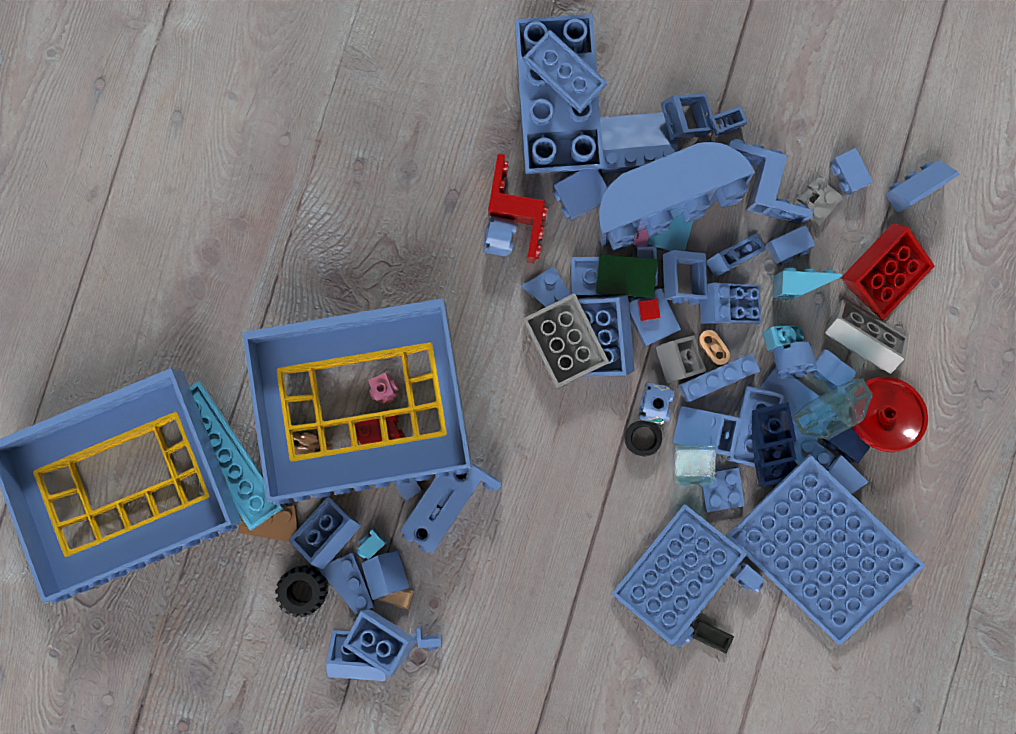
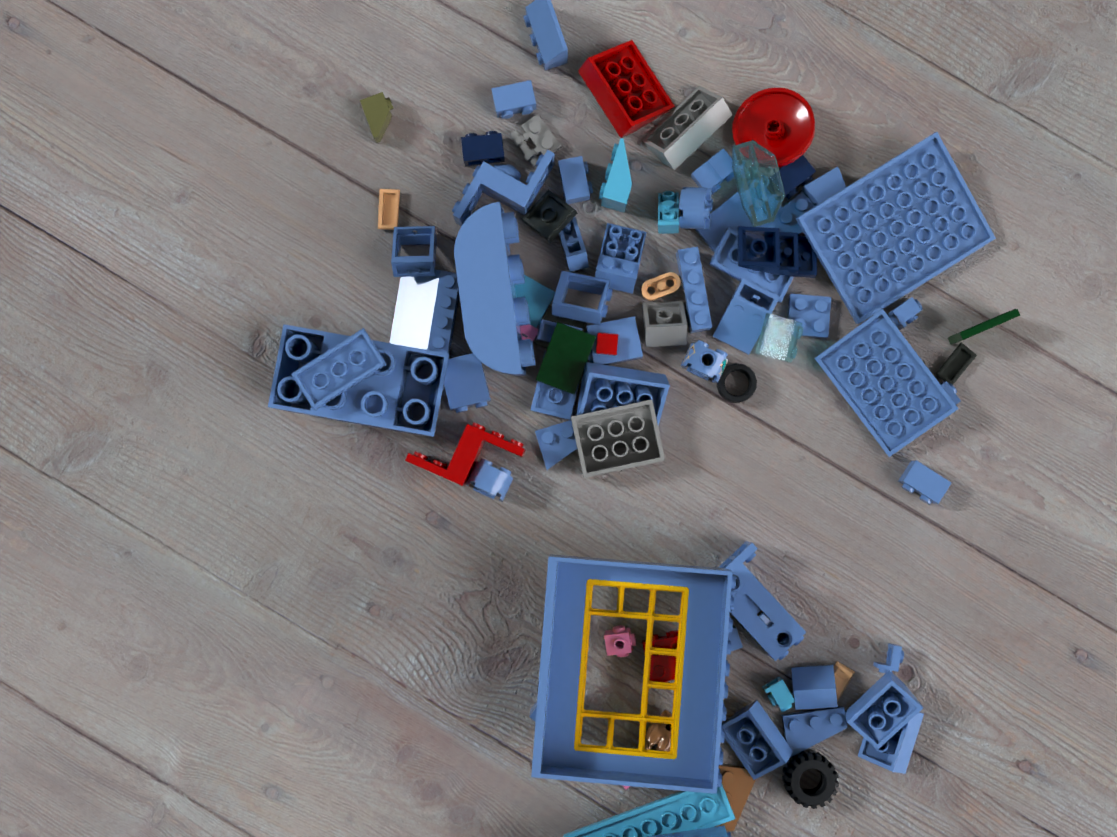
camera: 75 degrees left, 0 degrees up
(596, 632) = (924, 482): none -> medium blue brick
(720, 85) = (388, 209): none -> light nougat tile
(738, 116) = (425, 199): medium blue slope -> none
(752, 230) = (549, 216): none -> pearl dark grey tile
(754, 653) = (984, 326): none -> dark green tile
(784, 184) = (509, 170): none -> medium blue arm
(799, 156) = (482, 148): none -> dark blue brick
(804, 53) = (378, 114): none -> olive slope

